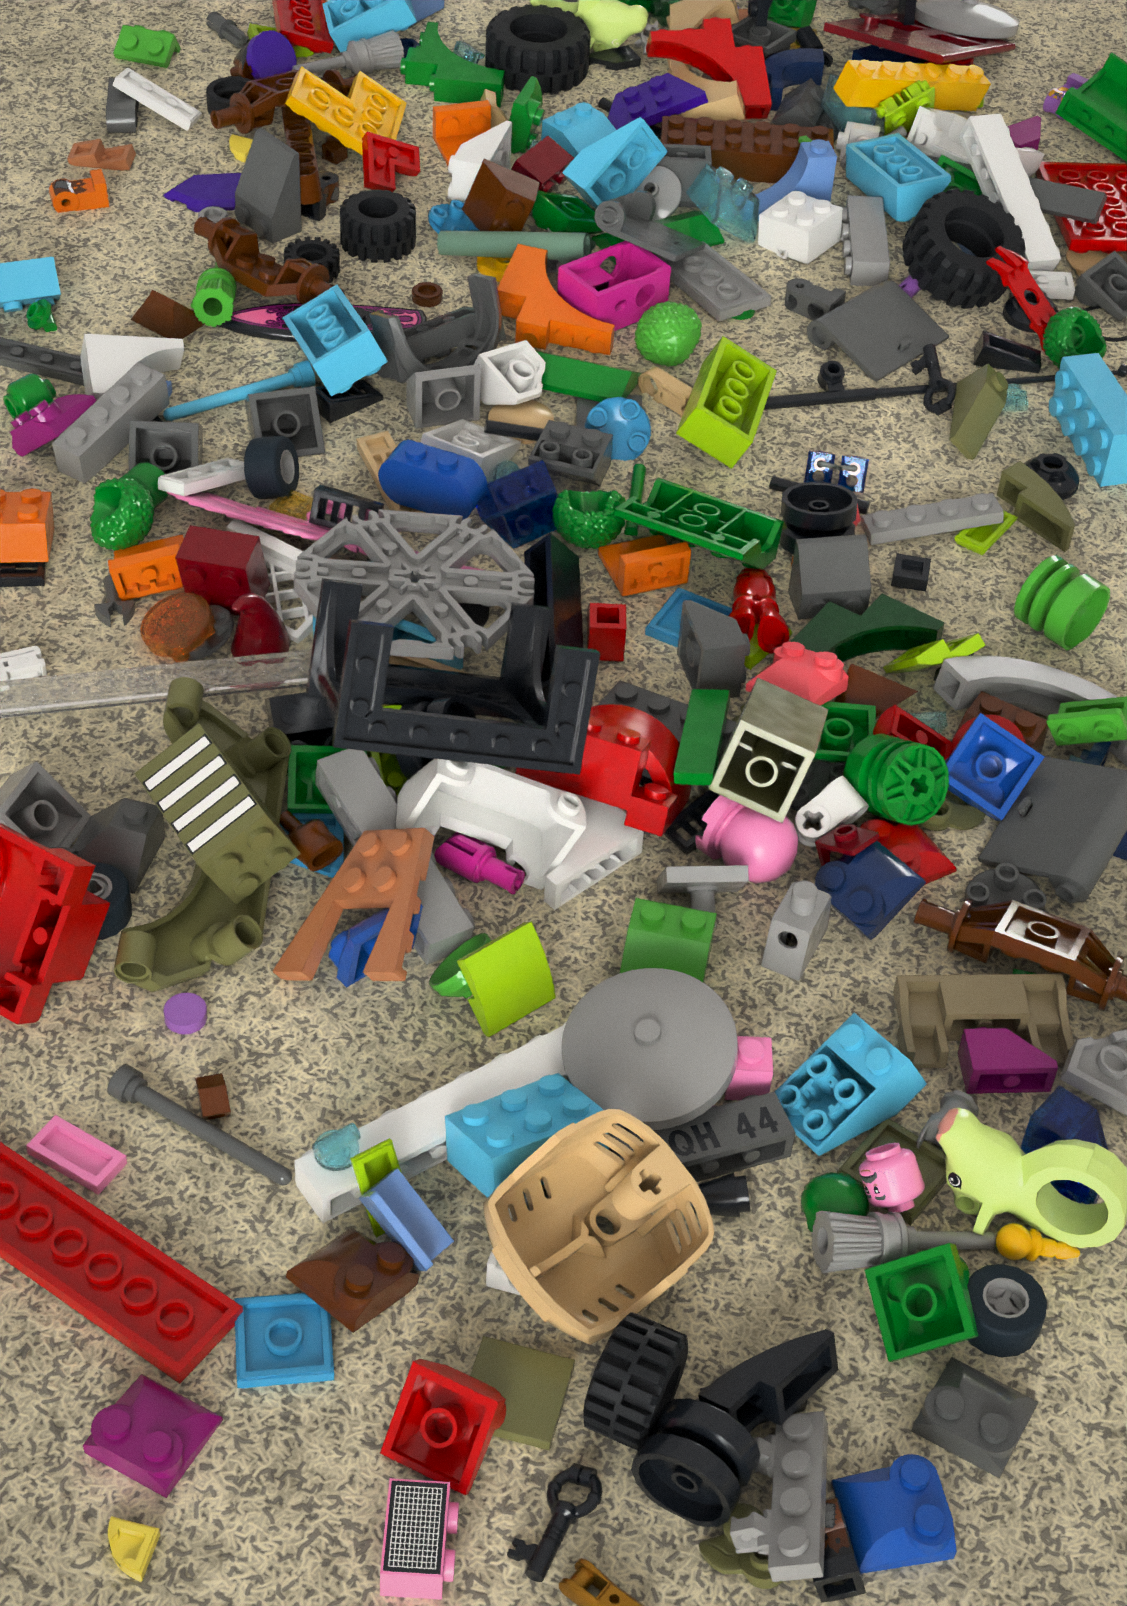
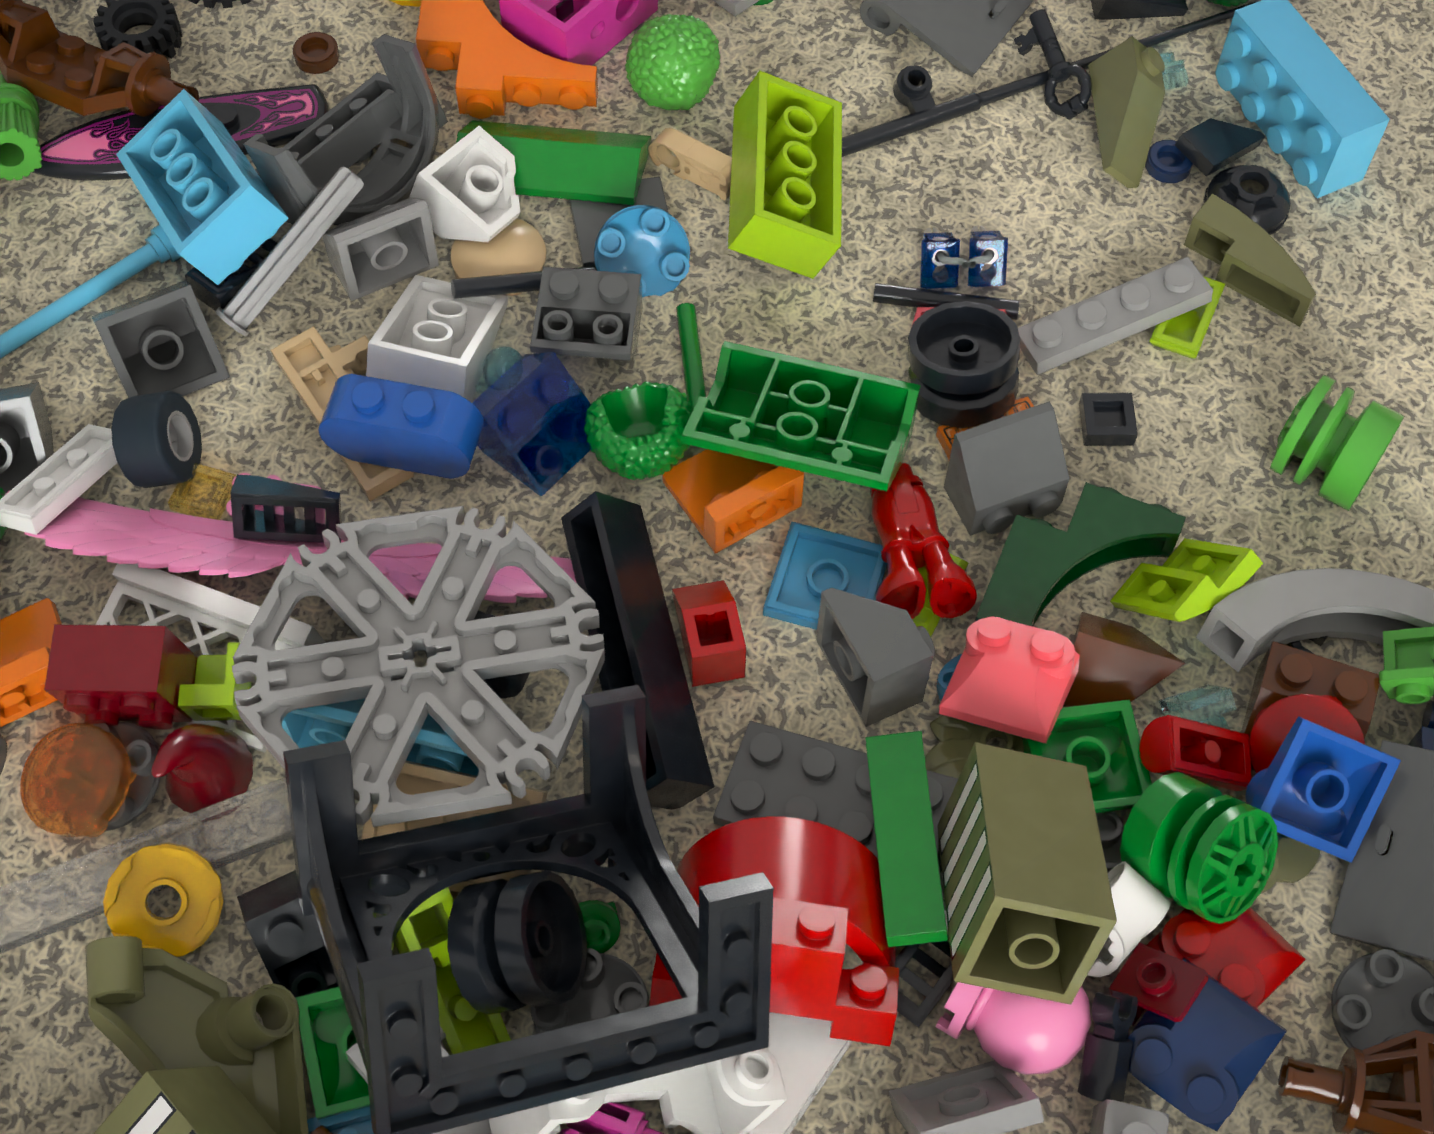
camera: 10 degrees left, 15 degrees up
(234, 679) = (173, 866): none -> yellow tile
(281, 596) = (214, 688): none -> lime panel
(384, 384) = (291, 250): none -> light grey axle
(806, 863) = (1108, 1047): none -> black bar
(1000, 447) = (1167, 162): none -> dark blue tile
(1033, 441) = (1217, 144): none -> black tile

